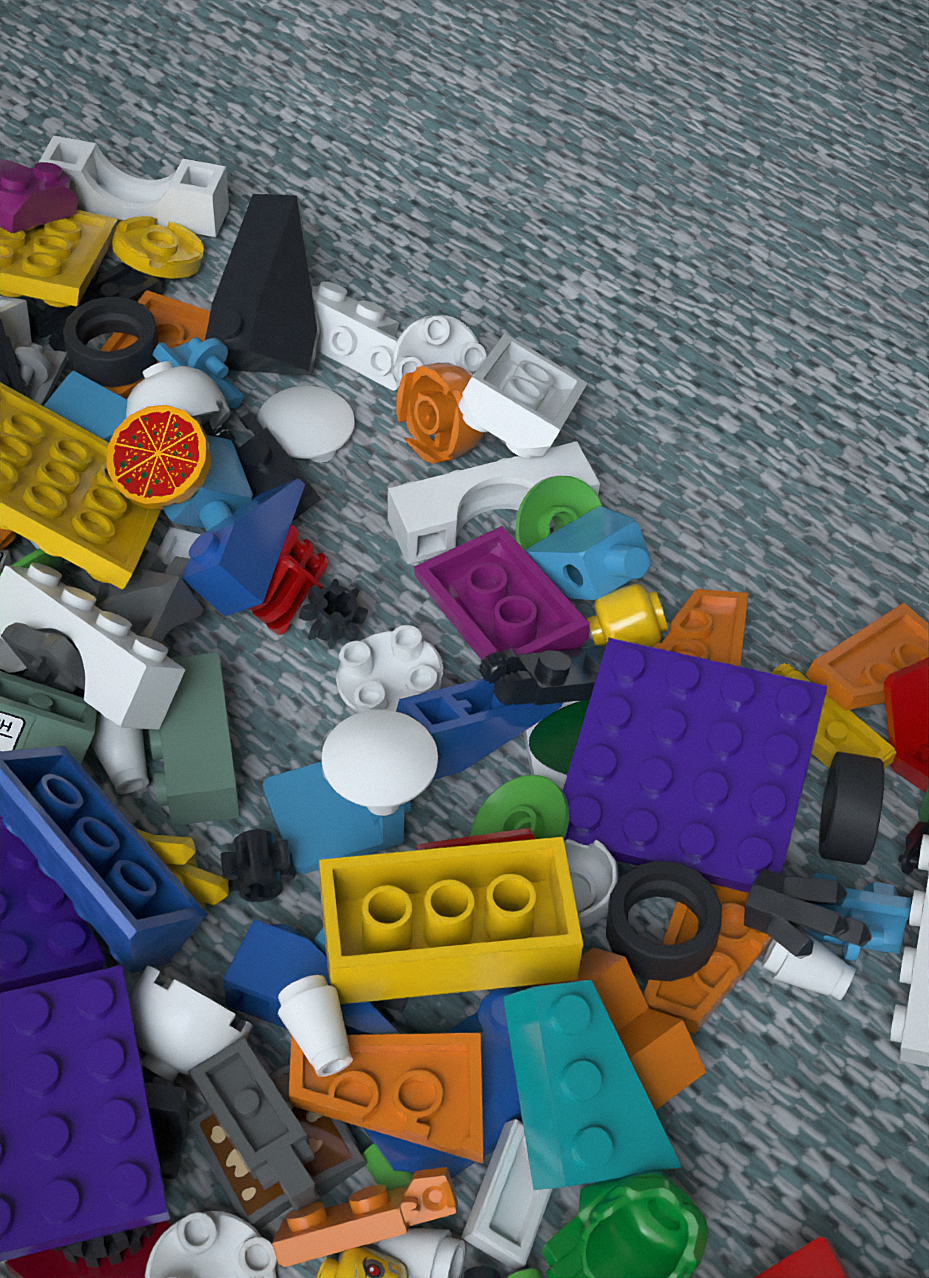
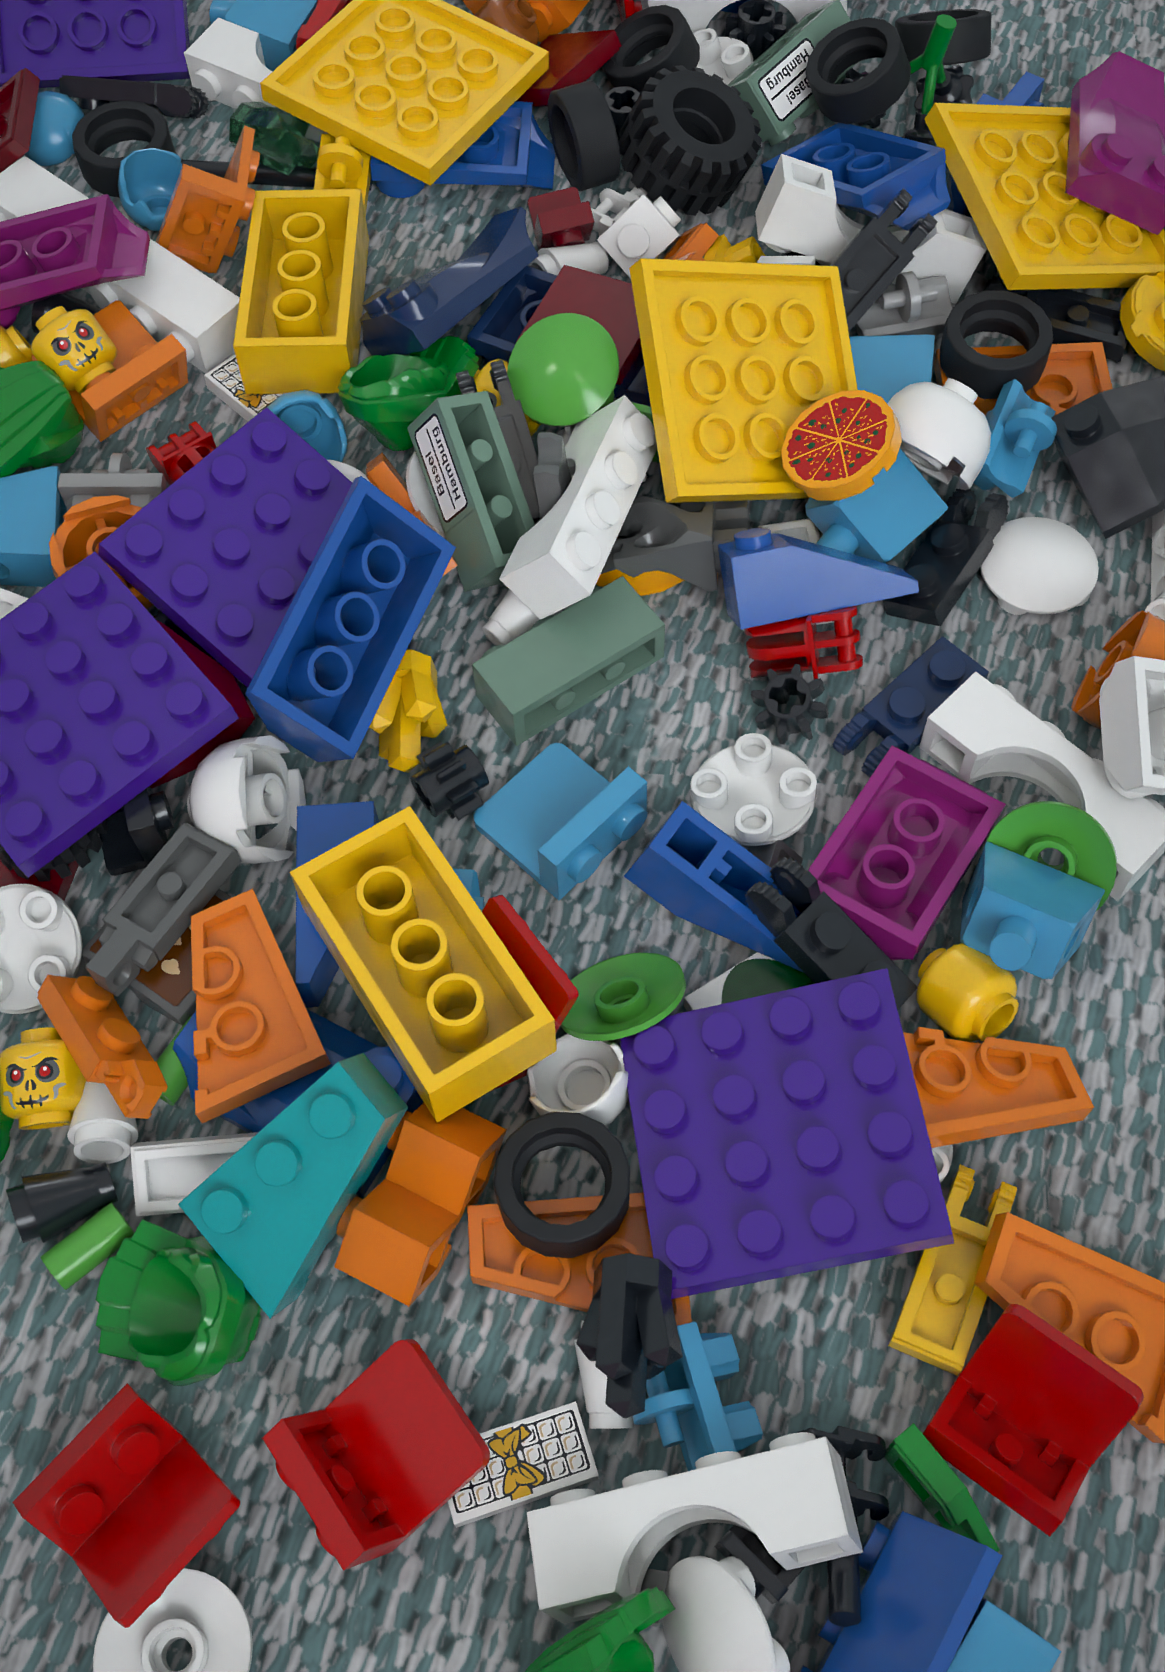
camera: 70 degrees right, 10 degrees up
(316, 1023) = (254, 899): white cone -> none
(374, 547) = (907, 702): none -> dark blue hinge
(379, 759) = (591, 815): white dish -> none
(813, 1133) = (379, 1455): none -> red bracket
(848, 1060) = (527, 1464): none -> tile
(851, 808) = (829, 1338): black tyre -> none

